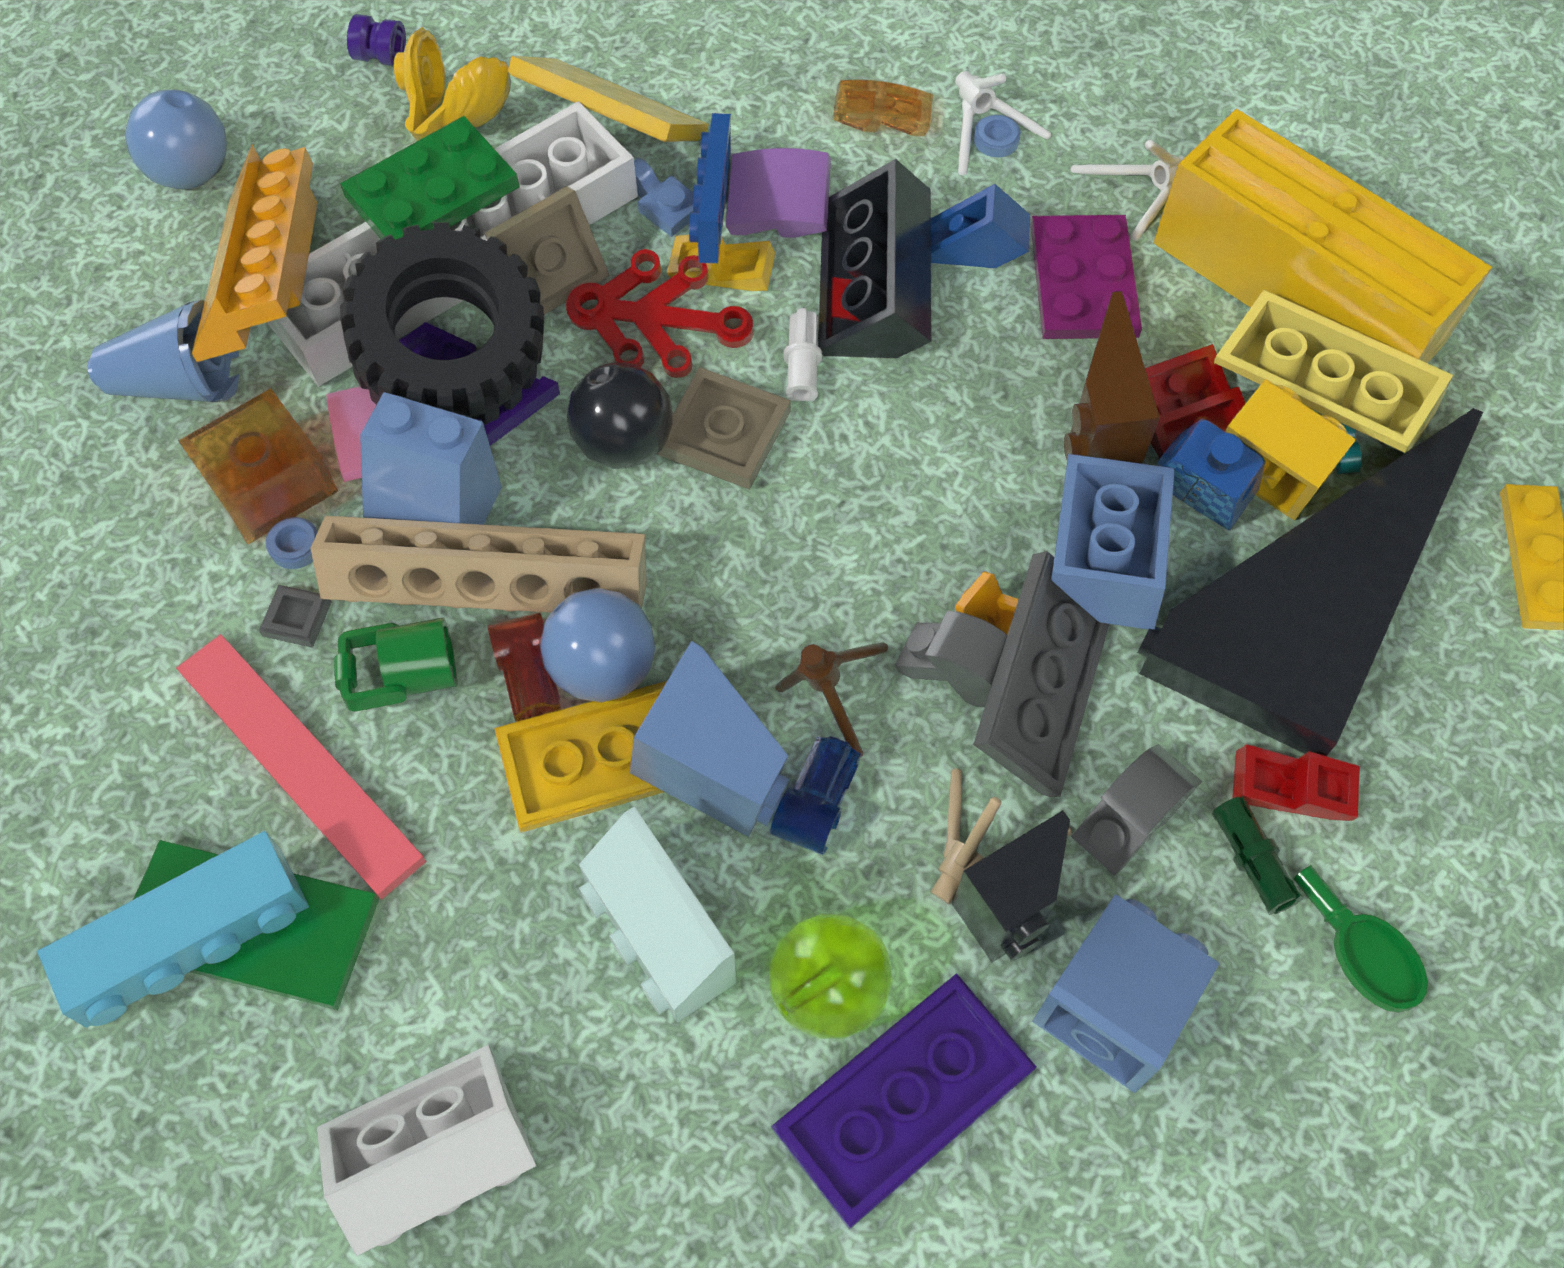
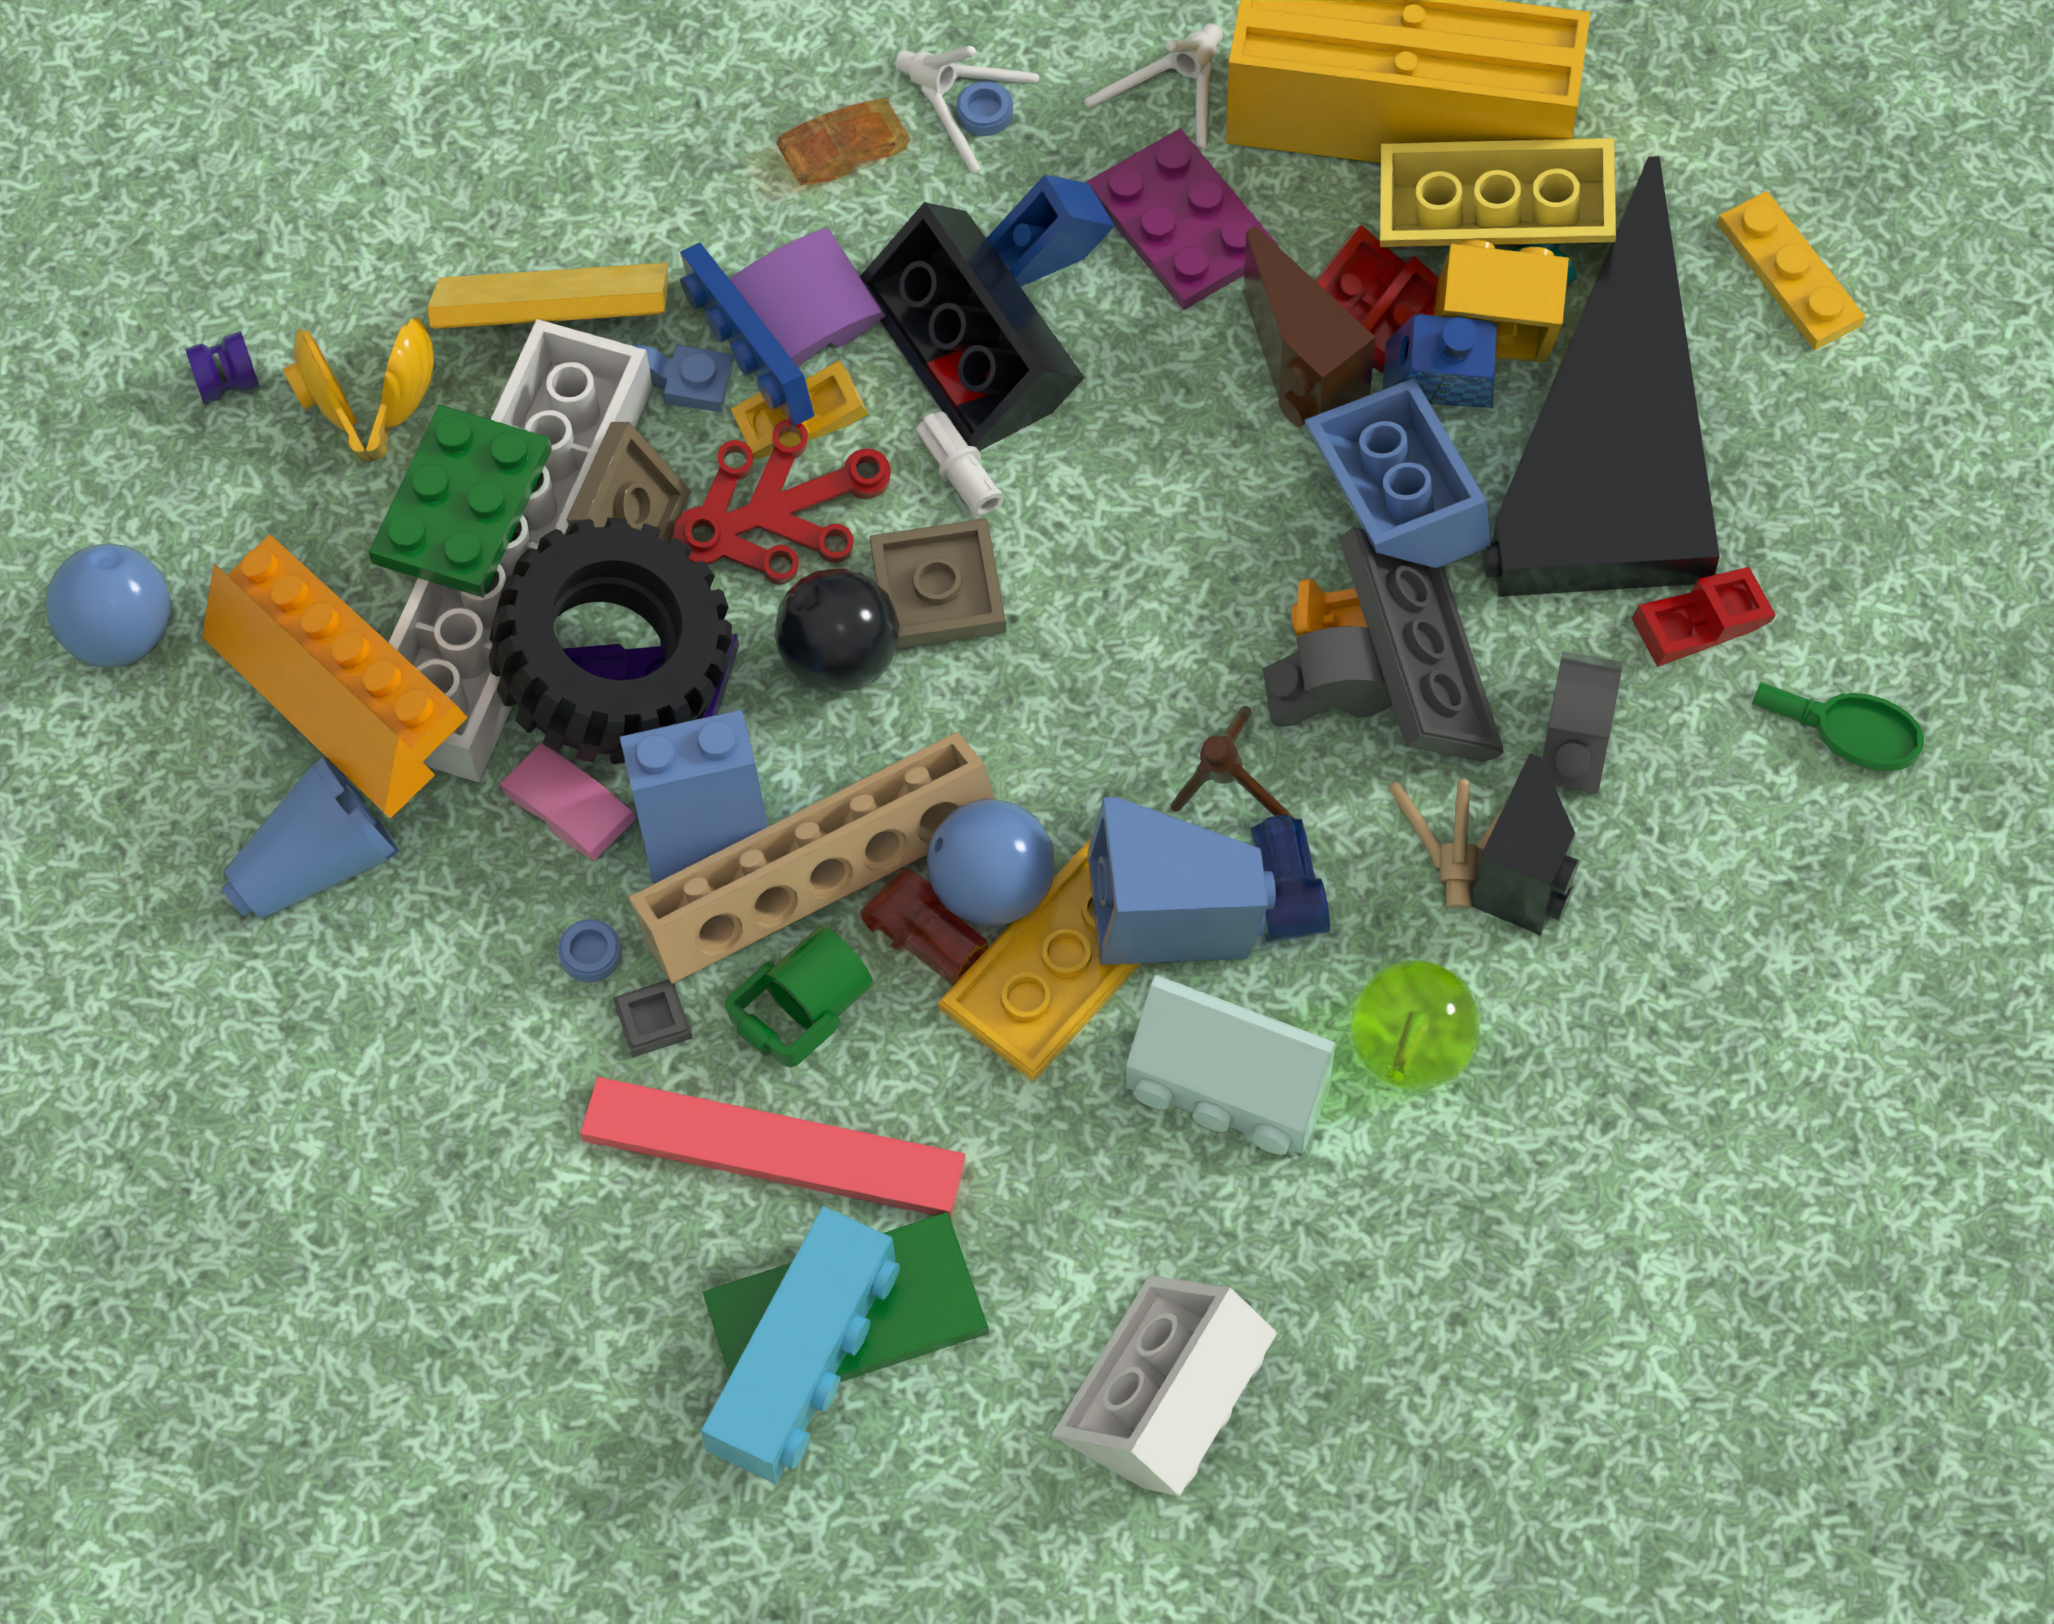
camera: 30 degrees left, 0 degrees up
(259, 465) = (505, 892): clear orange brick -> none
(902, 1100) = (1544, 1093): dark purple tile -> none
(1127, 993) = (1676, 886): medium blue slope -> none
(1256, 855) = (1709, 700): dark green pin -> none

